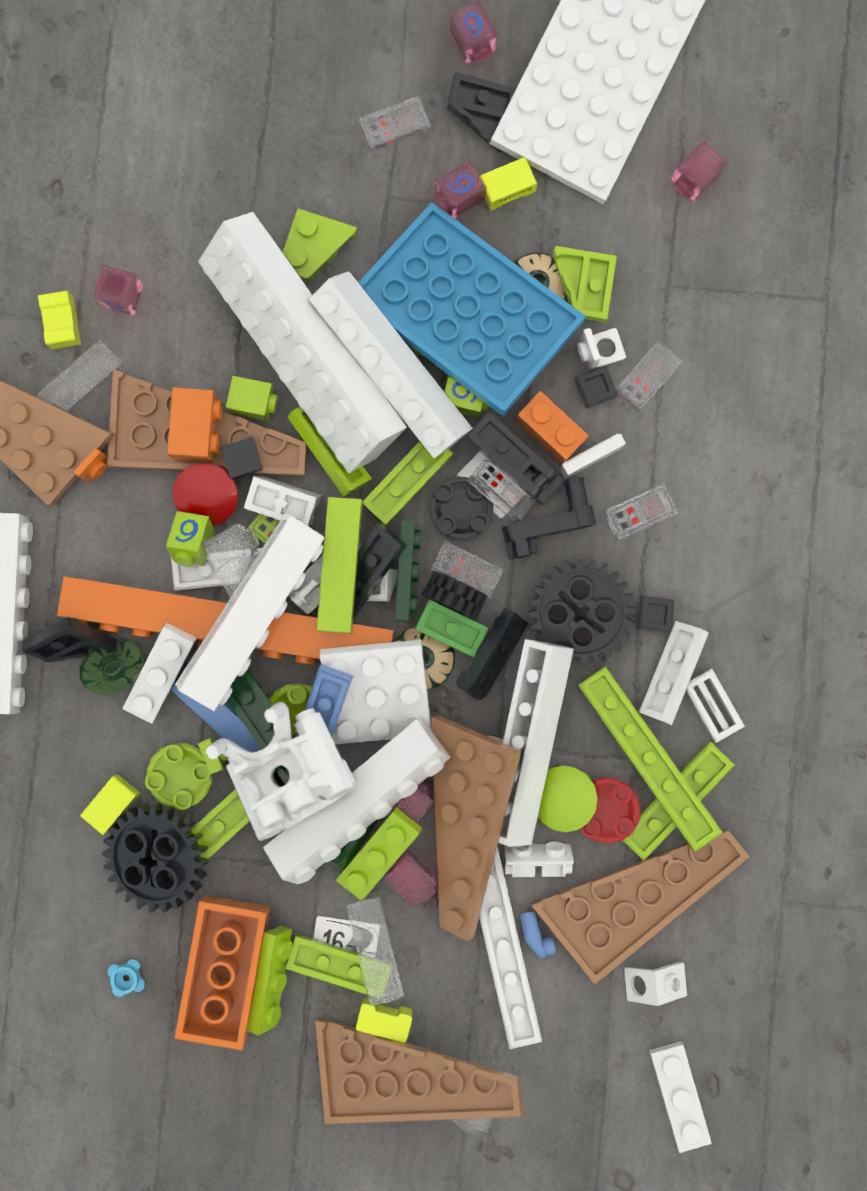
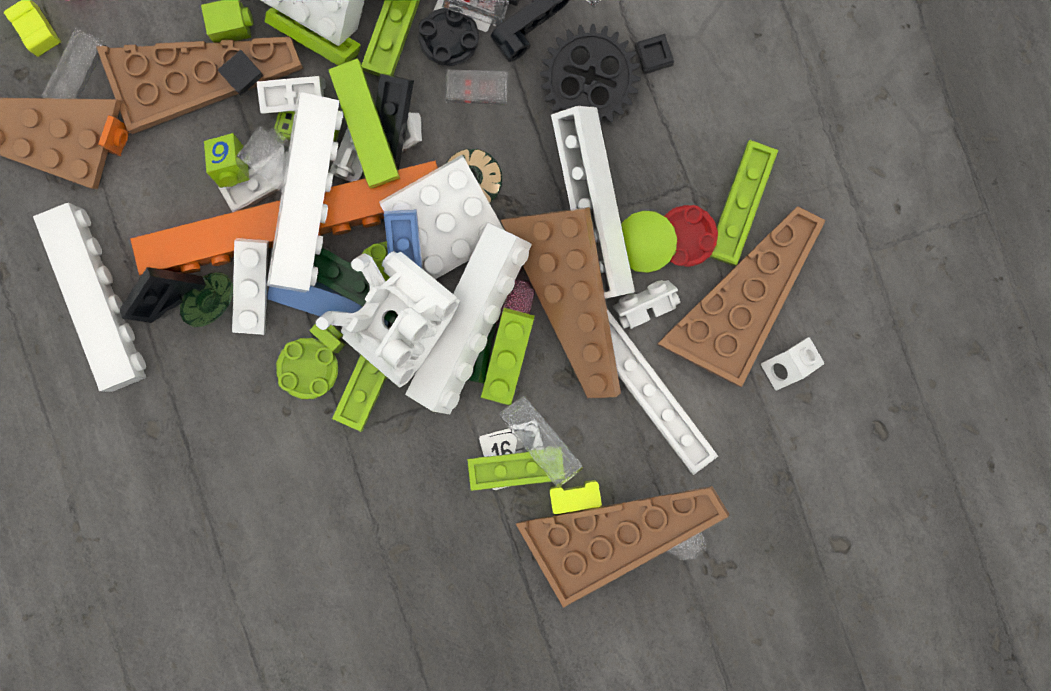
camera: 15 degrees left, 0 degrees up
(110, 804) = (258, 418): neon yellow piece -> none
(123, 987) = (328, 561): medium azure plate -> none
(155, 857) = (341, 437): black gear -> none
(194, 424) = (185, 60): orange brick -> none
(206, 492) = (223, 113): red dish -> none
(222, 972) = (417, 516): orange brick -> none
(270, 980) = (461, 505): lime plate -> none
(407, 571) = (426, 108): dark green plate -> none
(412, 879) = (546, 367): clear pink brick -> none
(451, 628) = (485, 140): bright green plate -> none
(454, 595) = (474, 108): black tyre -> none
(492, 655) = (530, 146): black plate -> none
(533, 938) = (672, 371): medium blue arm -> none
(650, 759) = (703, 176): lime tile -> none
(673, 672) = (691, 94): white plate -> none
(680, 1097) = (857, 451): white plate -> none
(726, 730) = (729, 117): white tile -> none

